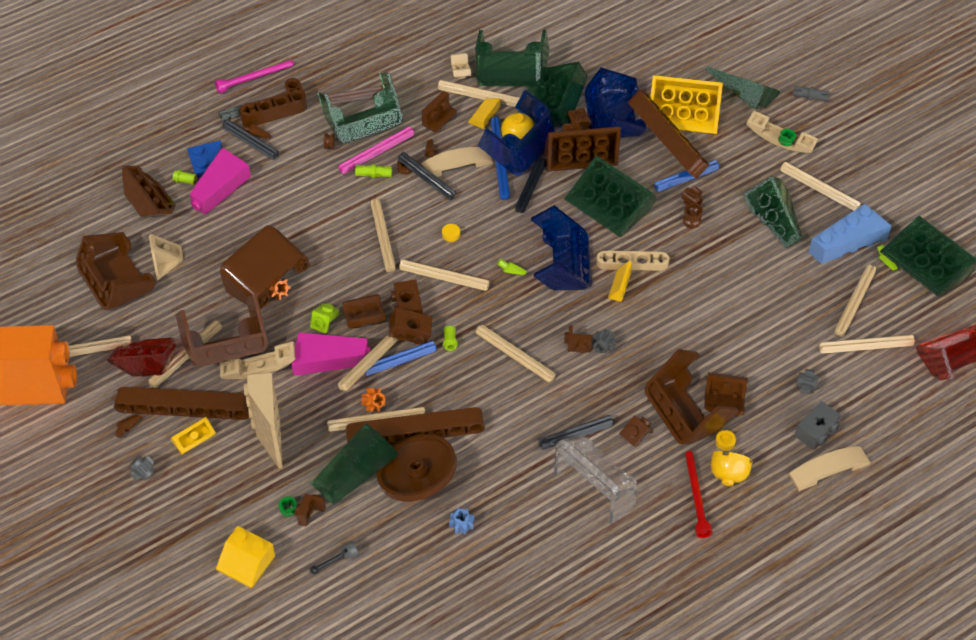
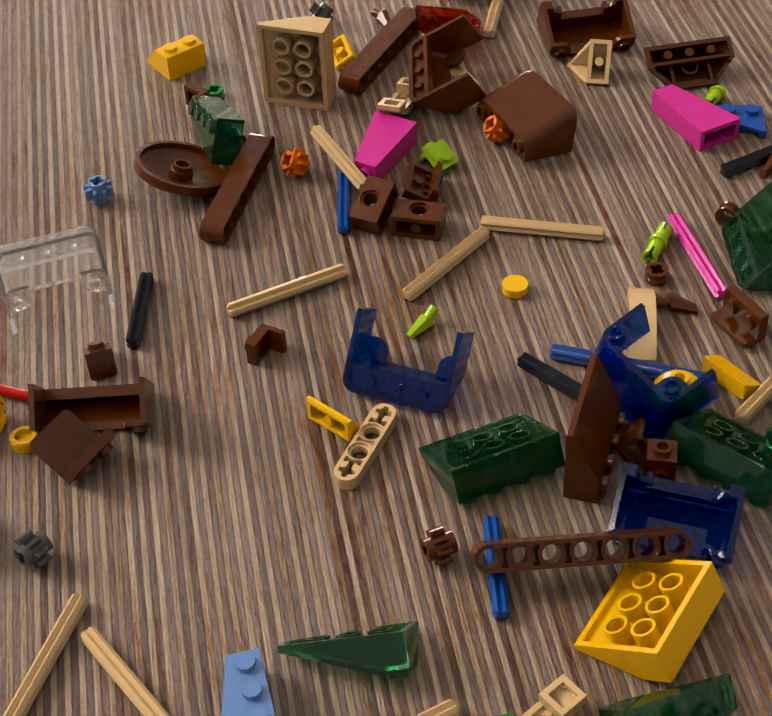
camera: 115 degrees right, 10 degrees down
(341, 423) = (273, 168): tan axle -> none
(348, 551) = (131, 113): hinge -> none
(426, 175) = (621, 281): black axle -> none
(450, 342) = (344, 242): lime pin -> none
(604, 341) = (244, 365): dark grey gear -> none
(692, 215) = (405, 535): reddish brown wheel -> none

